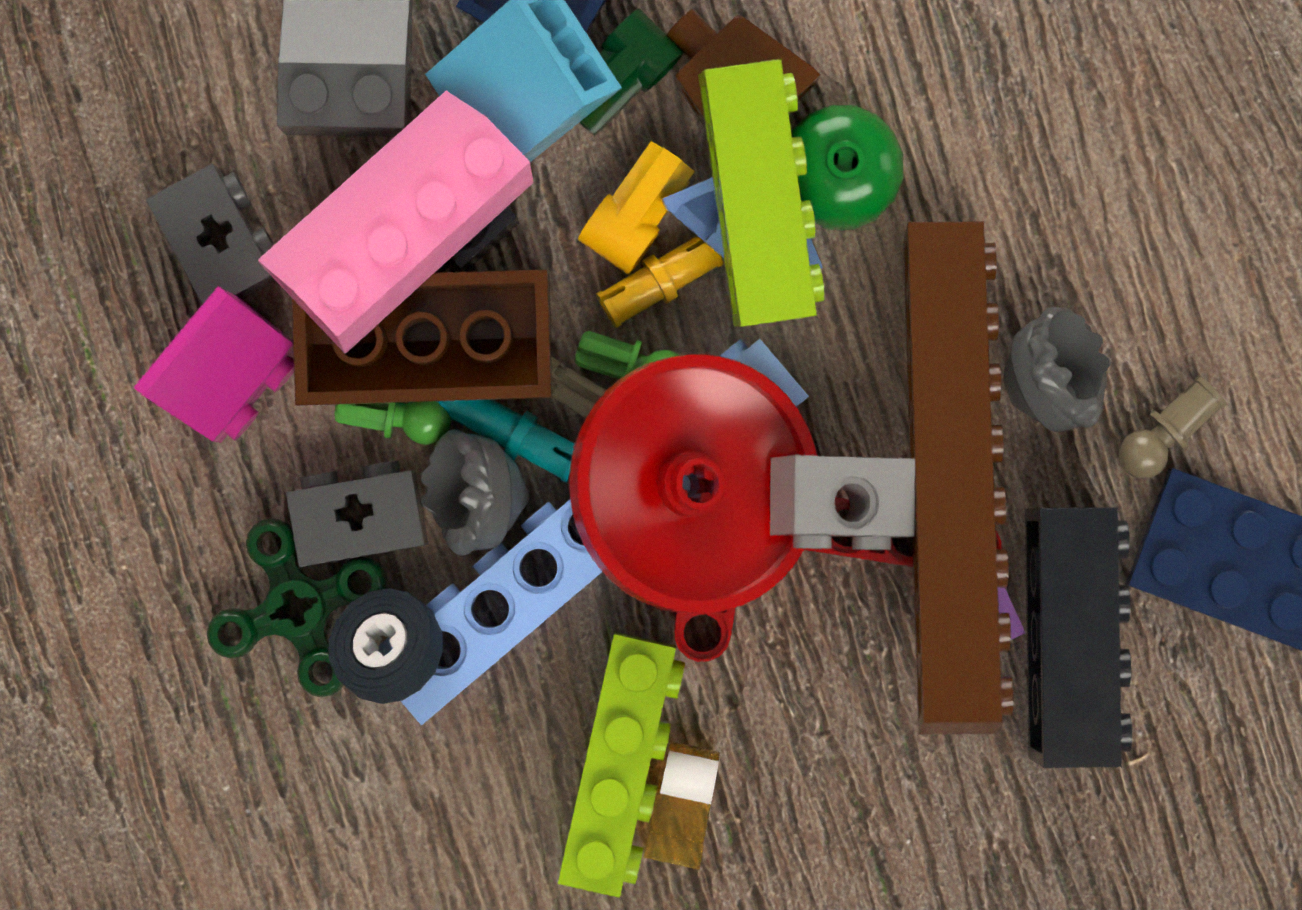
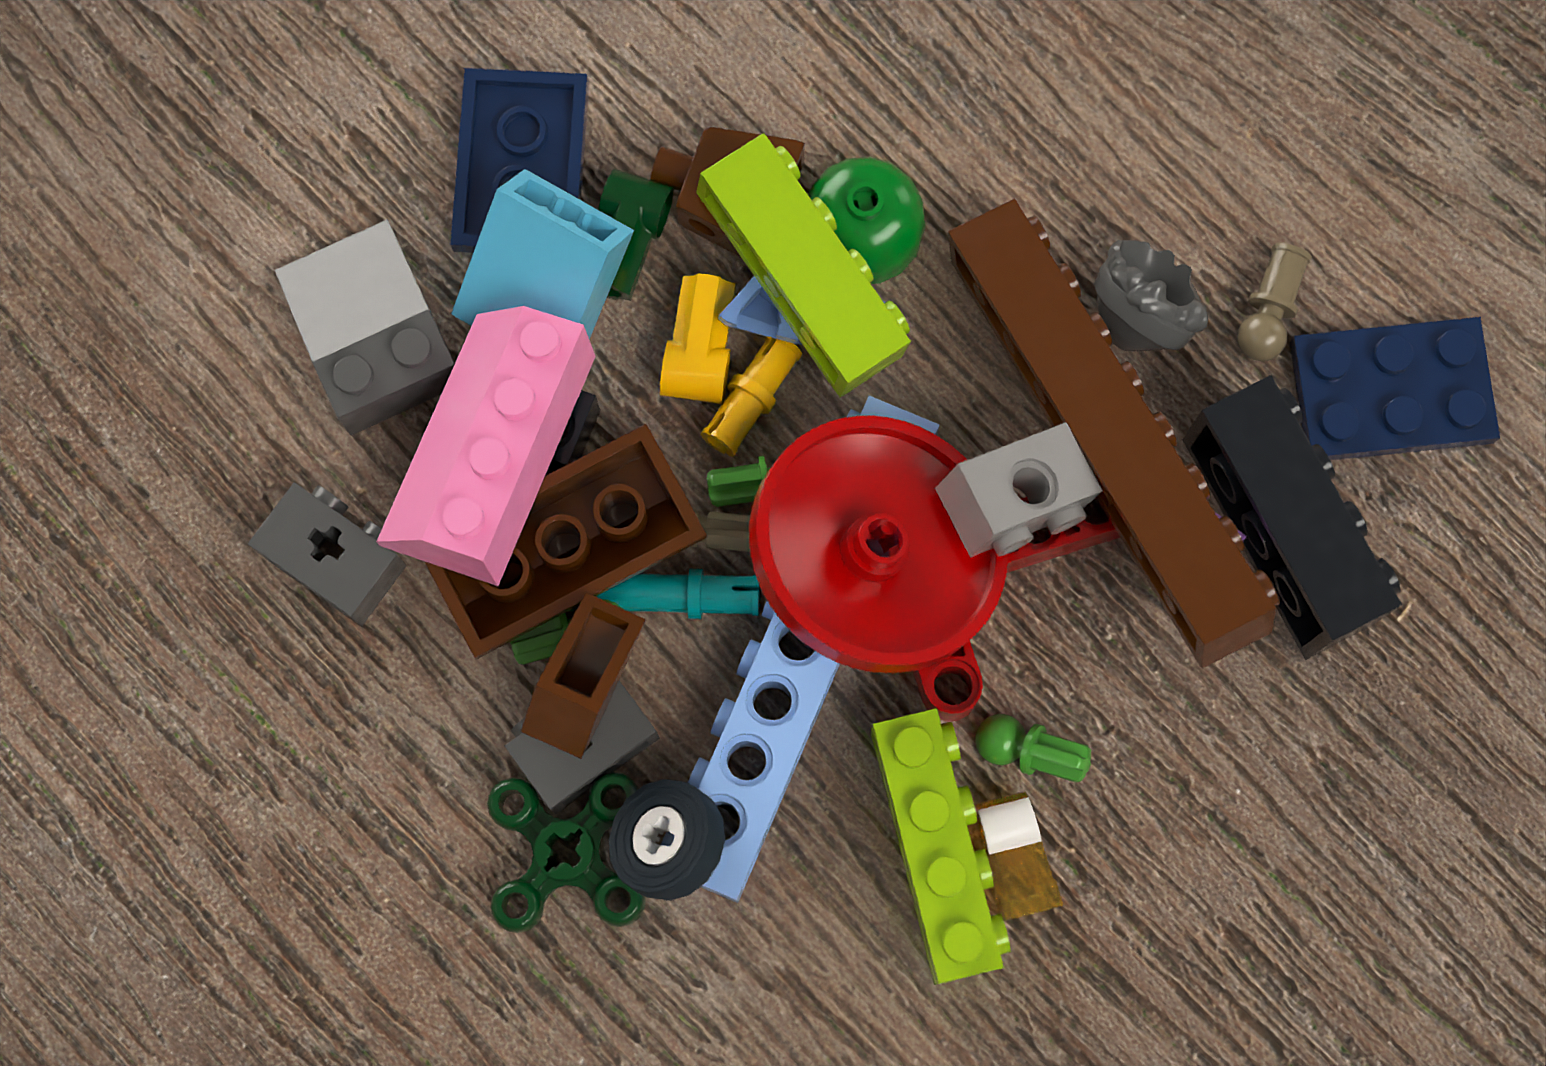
camera: 25 degrees left, 10 degrees down
(219, 367) = (386, 656): dark pink slope -> none
(381, 469) = (582, 675): none -> reddish brown slope
(472, 491) = (679, 663): dark grey hair -> none
(726, 697) = (1003, 740): none -> bright green axle

